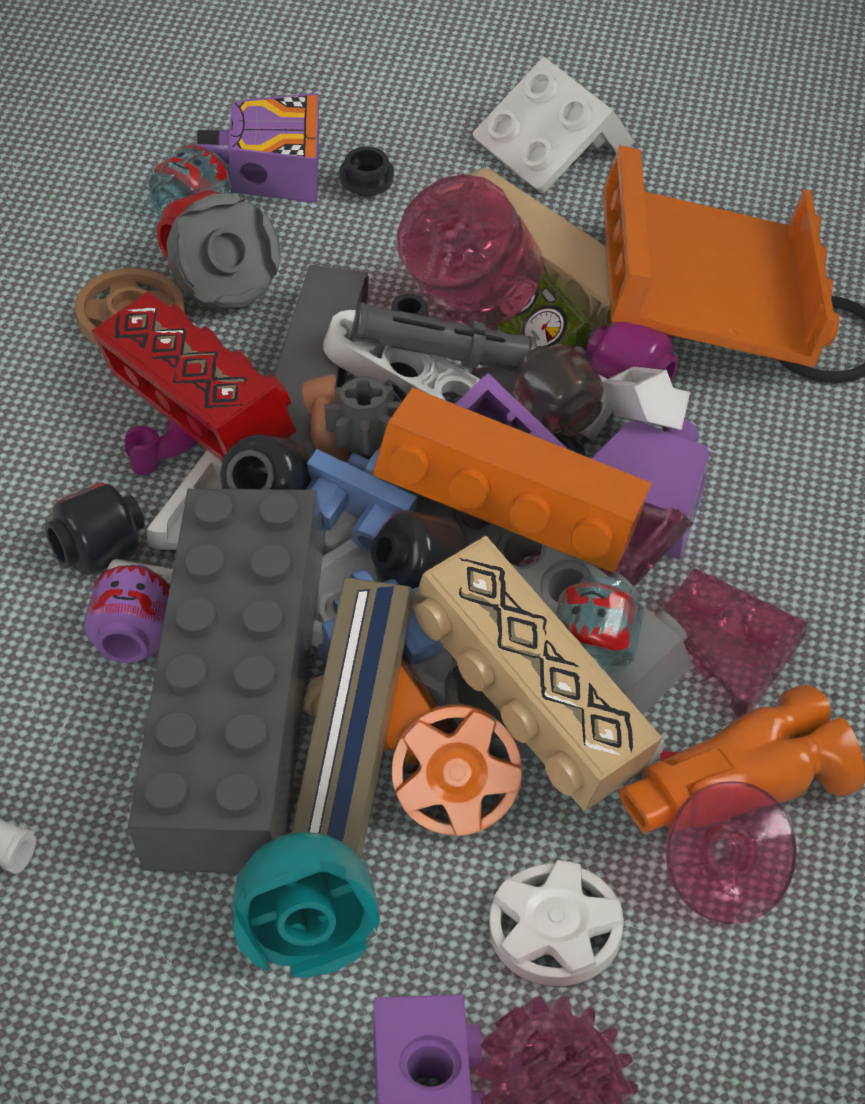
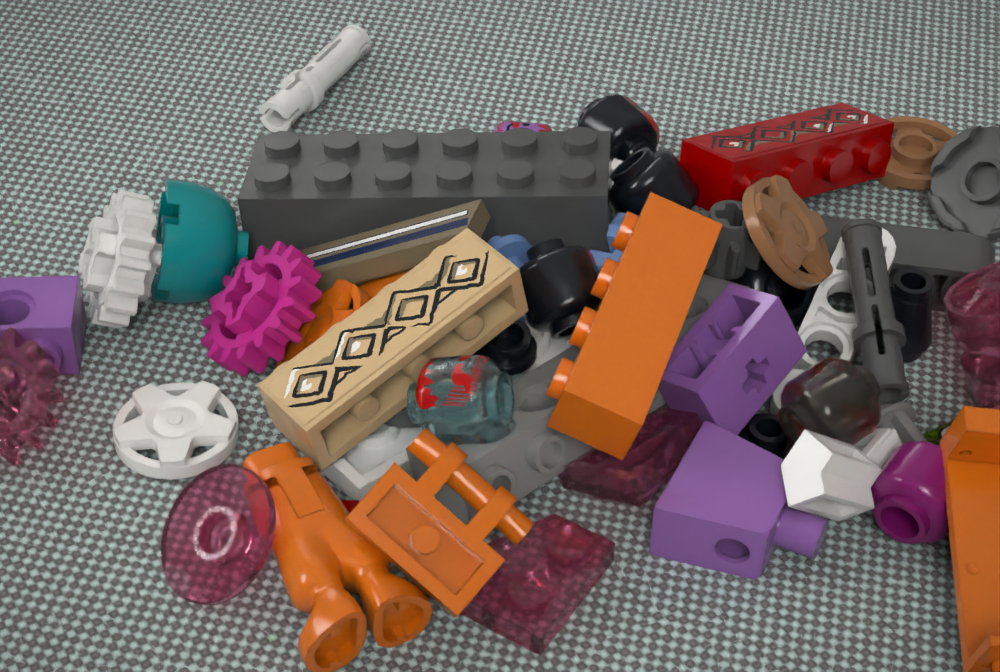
camera: 90 degrees right, 5 degrees down
(349, 952) = (120, 259): none -> white gear
(369, 365) = (786, 232): none -> medium nougat wheel
(414, 856) = (261, 309): none -> dark pink gear
(744, 661) = (427, 538): none -> orange plate

